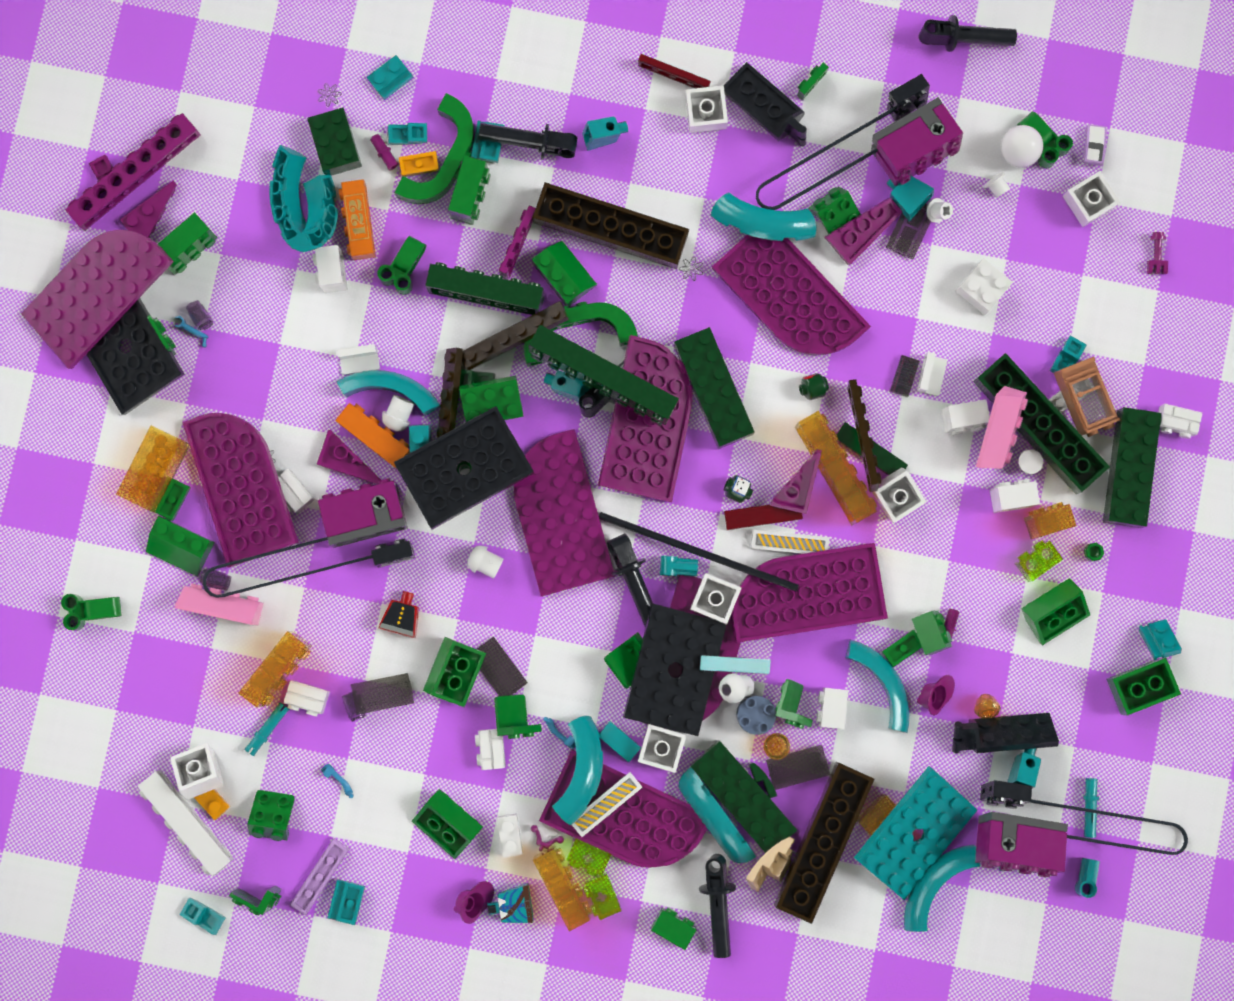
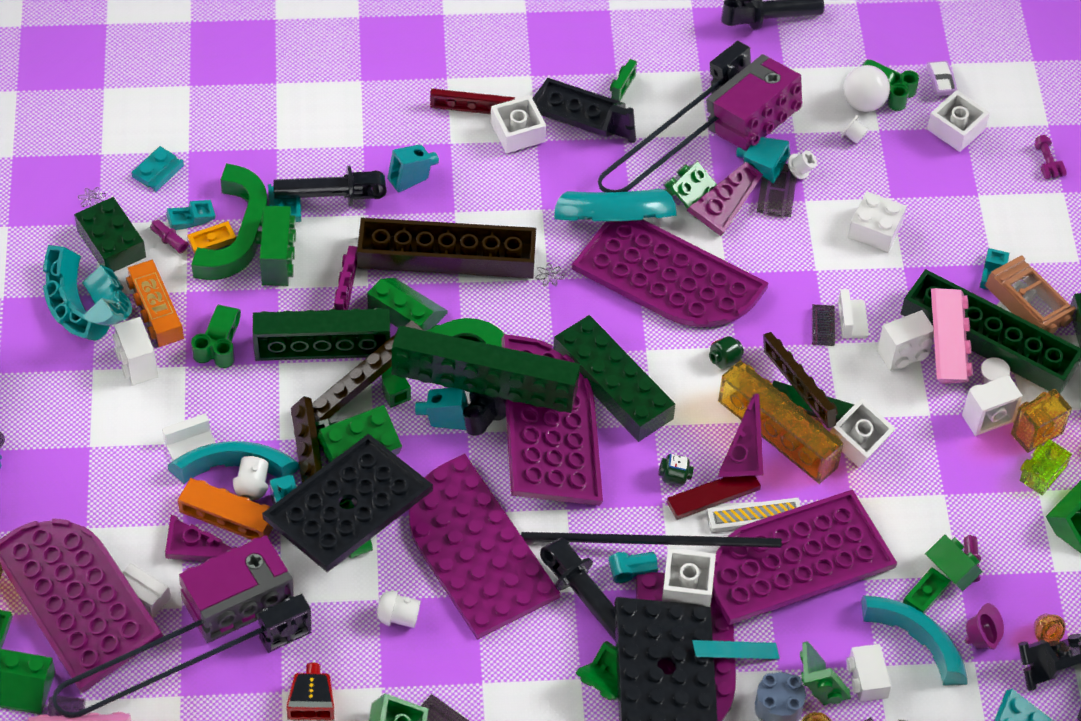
camera: 15 degrees left, 30 degrees down
(735, 687) = (744, 672): white piece -> none

